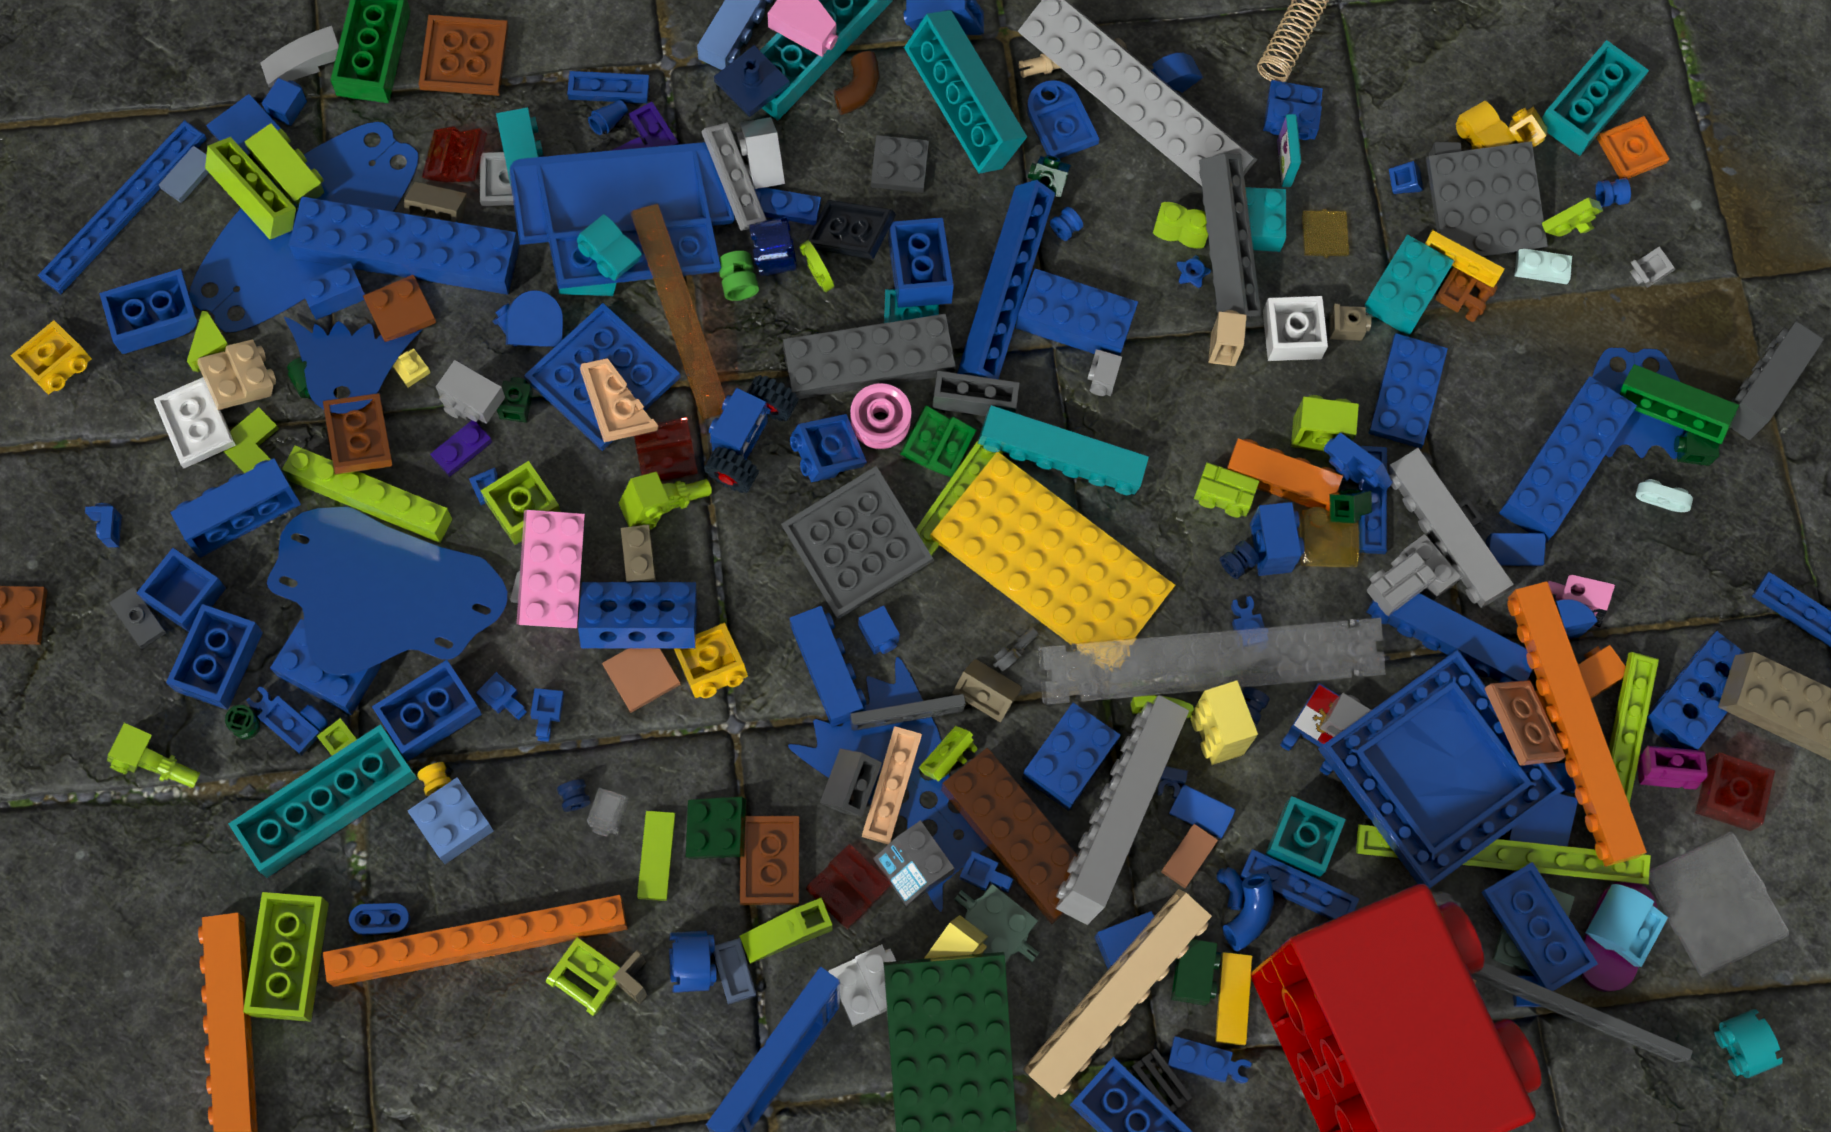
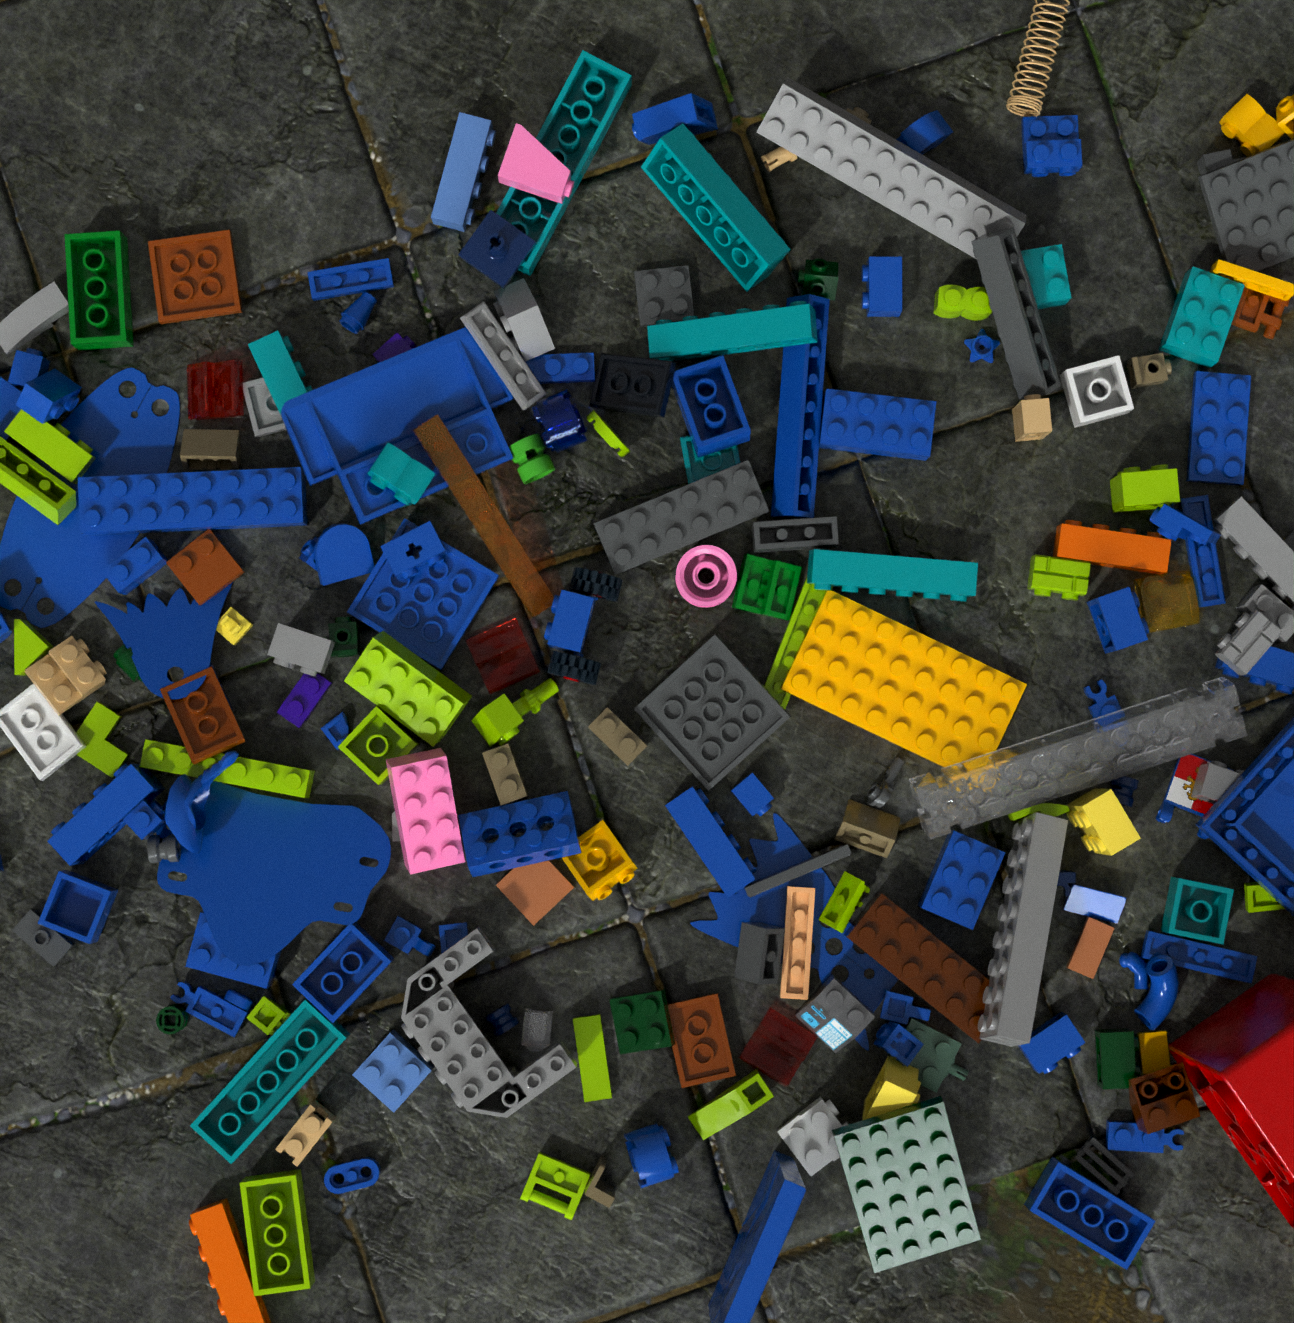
camera: 10 degrees left, 15 degrees up
(132, 751) = (79, 1075): lime brick -> none
(214, 656) = (128, 964): blue brick -> none
(274, 519) = (146, 818): none -> blue brick
(282, 550) = (163, 848): none -> dark grey wheel
(296, 122) = (49, 396): none -> blue brick
(320, 508) = (187, 801): none -> blue hat
(344, 864) = (306, 1132): none -> tan brick
(433, 777) = (367, 1033): yellow wheel -> none
(474, 941) = (446, 1177): orange brick -> none
(524, 804) = (459, 1047): none -> light grey wedge
(564, 455) = (407, 688): none -> lime brick
(613, 319) = (399, 548): none -> blue brick
(614, 405) = (442, 624): light nougat wing -> none
(652, 126) = (408, 317): dark purple plate -> none
(734, 971) = (690, 1149): sand blue tile -> none
(758, 546) = (617, 736): none -> dark tan brick
(827, 447) = (661, 620): blue plate -> none
(861, 86) = (608, 218): reddish brown cylinder -> none
(959, 199) = (733, 333): none -> teal brick
(972, 901) = (898, 1042): none -> blue bracket
(1060, 122) = (818, 213): blue plate -> none
(1066, 223) = (846, 326): blue wheel -> none
(1104, 372) = (915, 480): light grey brick -> none
(1109, 197) = (883, 286): none -> blue brick
(1117, 993) = (1050, 1100): tan brick -> none
(1234, 1015) = (1162, 1098): none -> reddish brown slope
(1239, 559) = (1084, 645): dark blue wheel -> none
(1289, 150) = (1056, 198): teal tile -> none
(1325, 233) = (1107, 275): clear yellow piece -> none
(1350, 505) = (1184, 569): dark green brick -> none
(1406, 178) = (1178, 196): blue slope -> none

